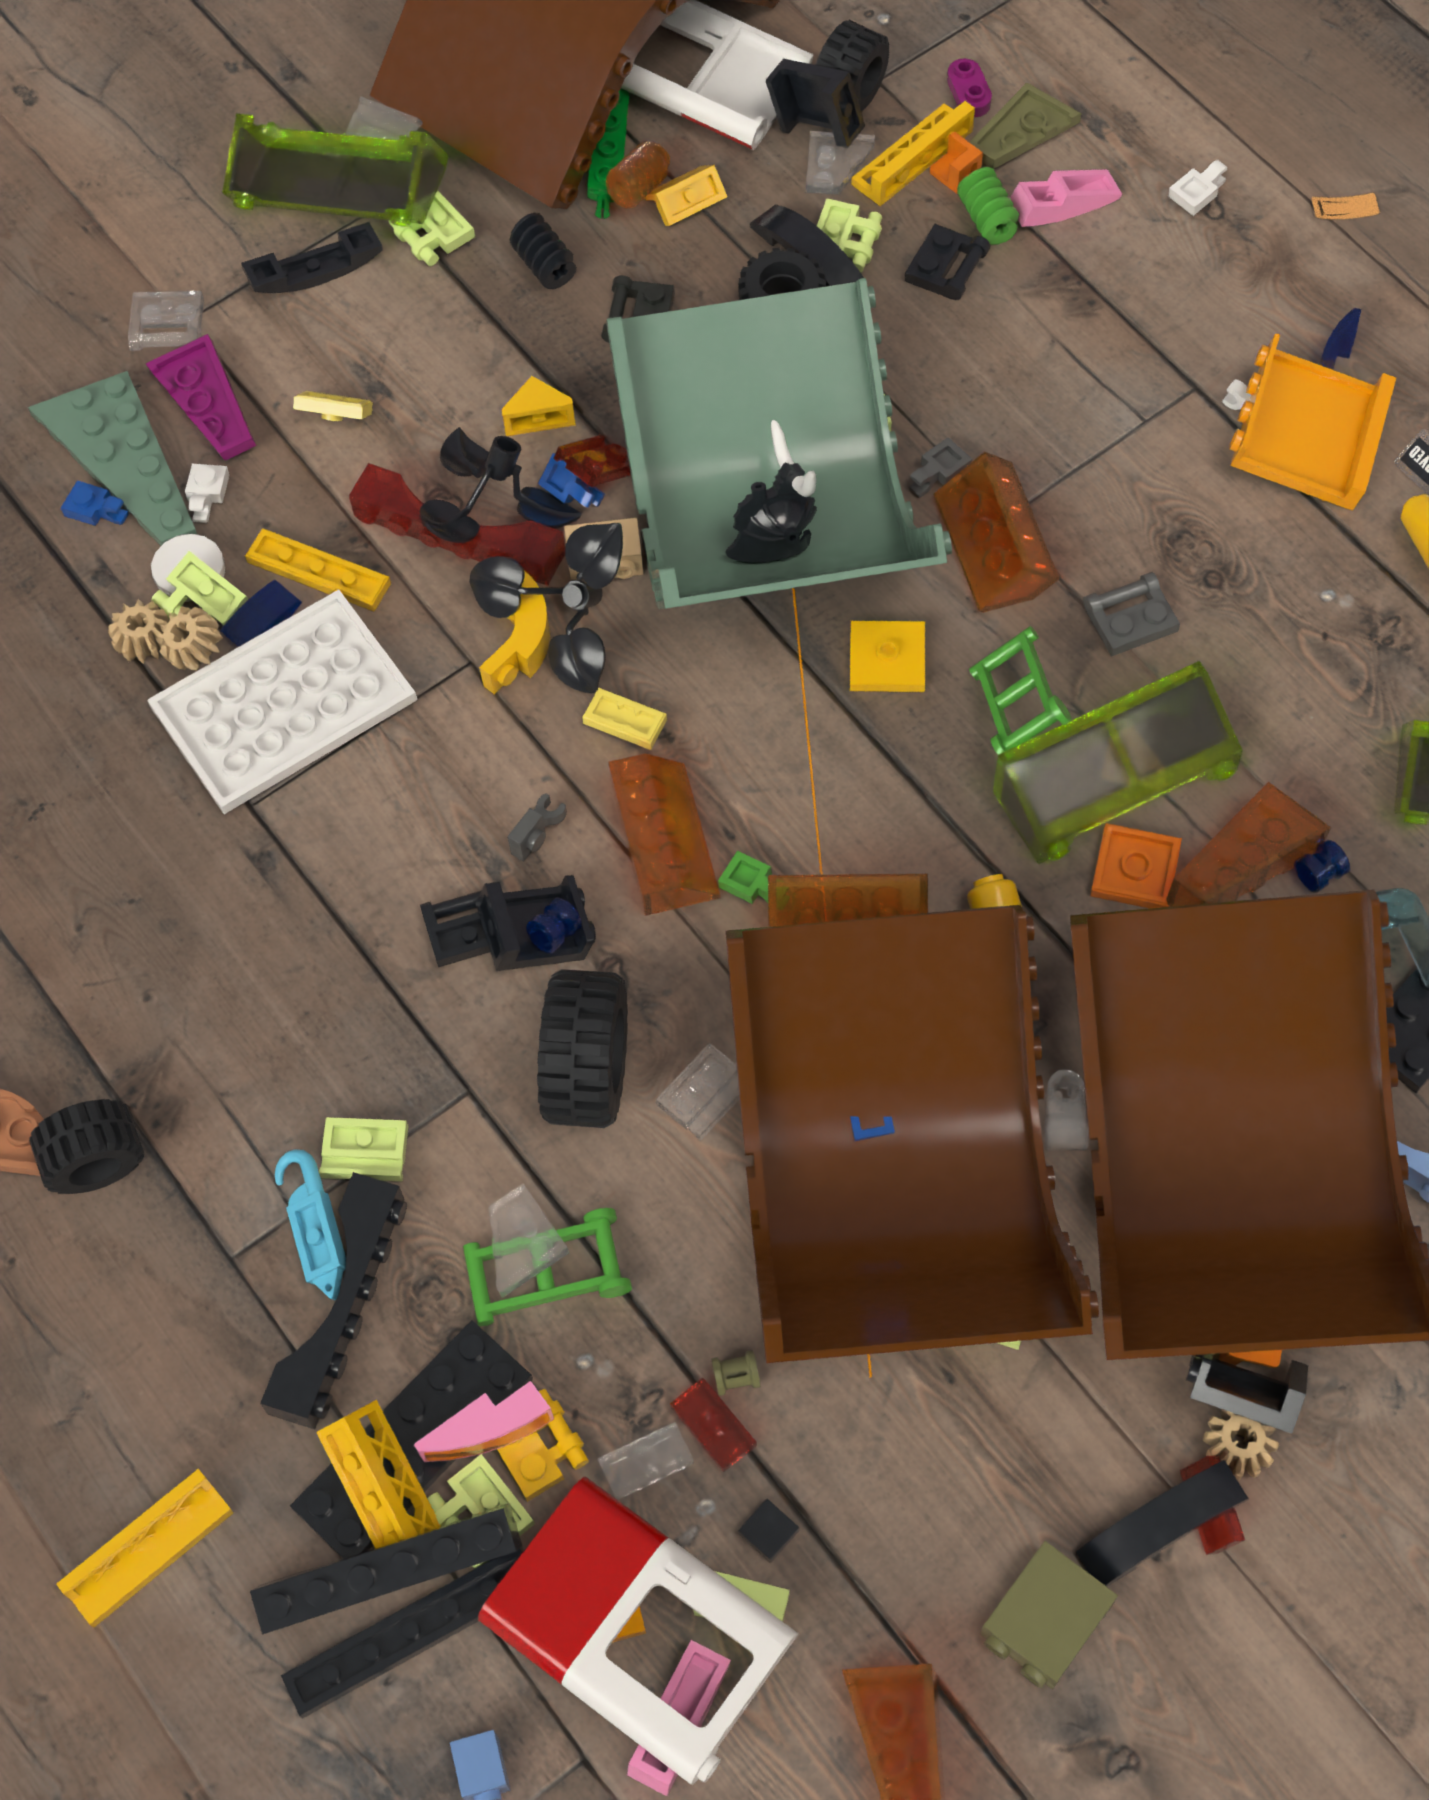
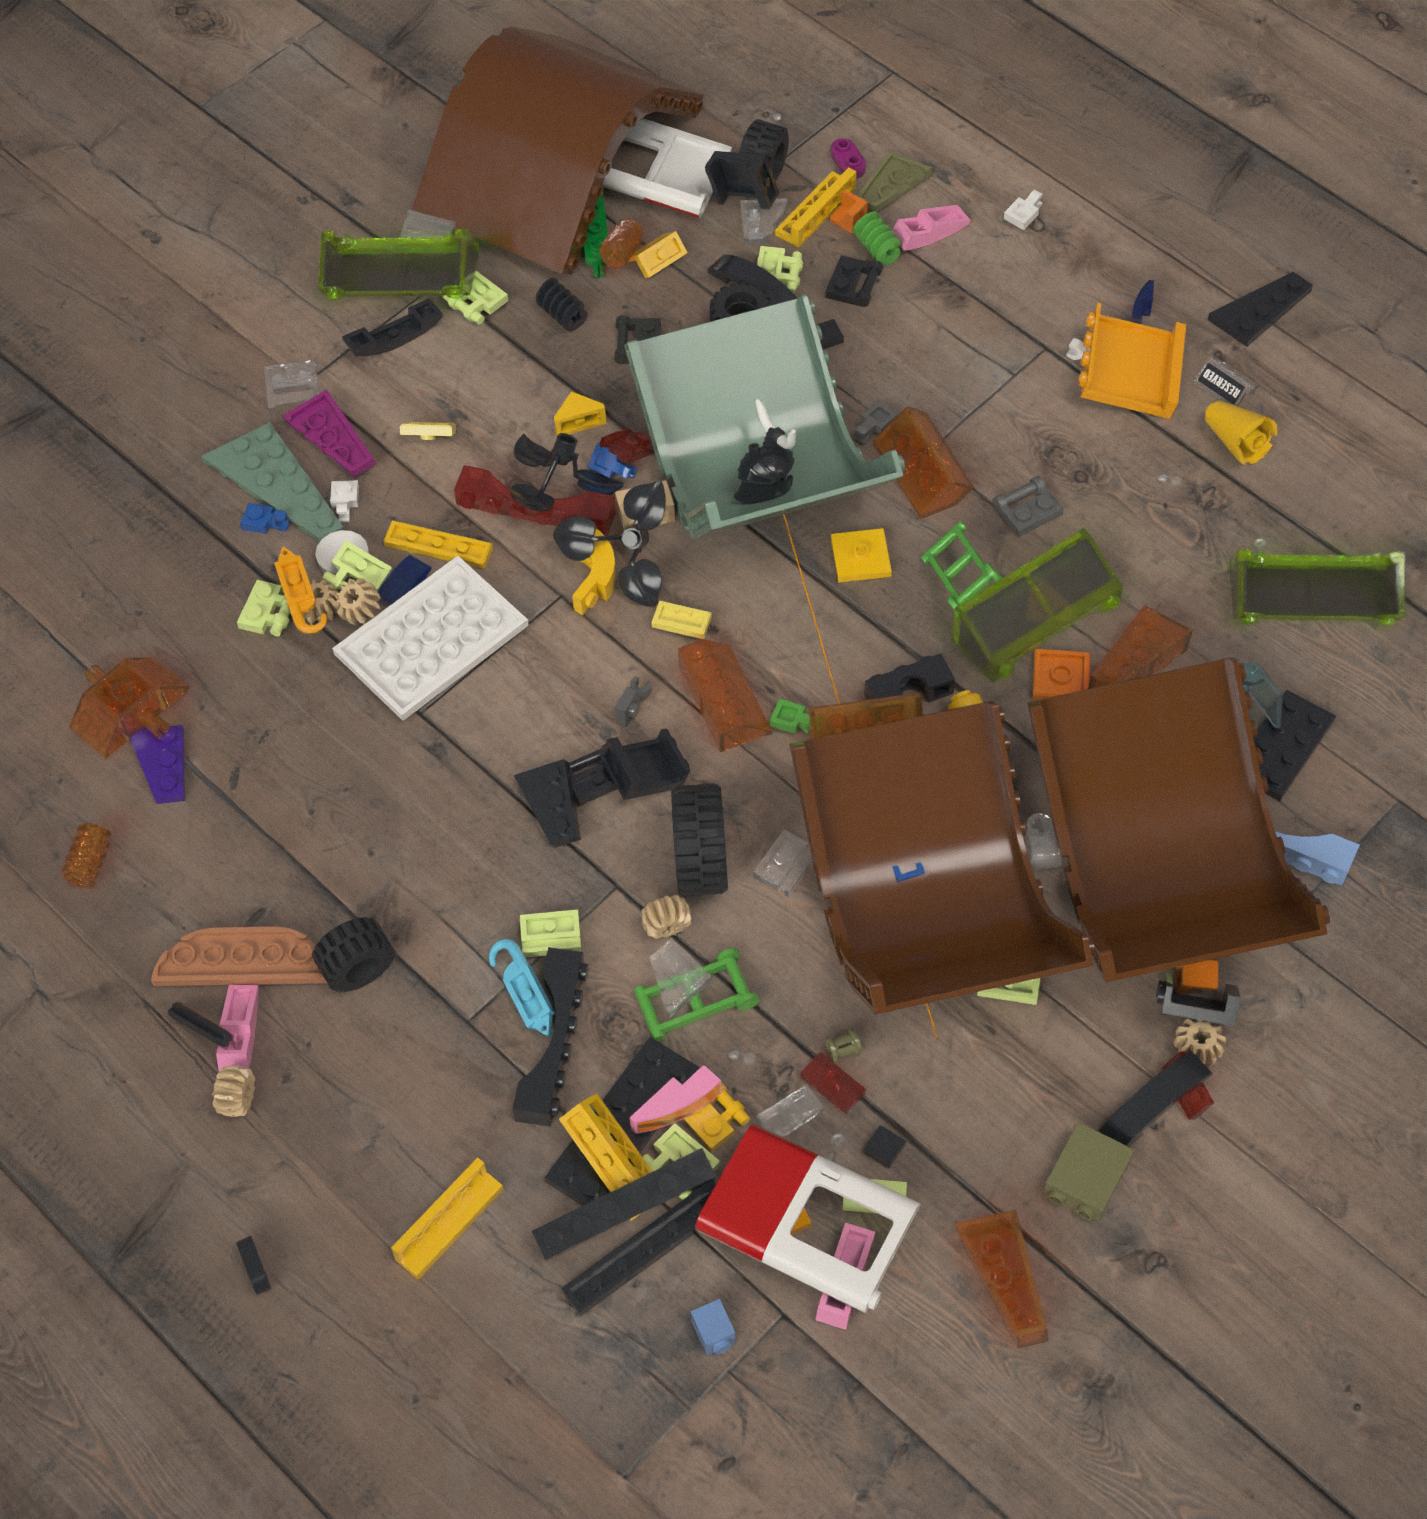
camera: 10 degrees left, 5 degrees down
(66, 628) = (260, 609): none -> yellowish green plate
(111, 614) = (297, 590): none -> light orange plate
(401, 958) = (552, 801): none -> black wing
(523, 1149) = (666, 916): none -> tan gear
(550, 928) = (660, 763): clear blue wheel -> none
(897, 333) = (830, 334): none -> black tile
(949, 844) = (928, 676): none -> black arch
(1323, 865) = (1193, 654): clear blue wheel -> none
(1345, 207) = (1130, 213): clear orange sticker -> none

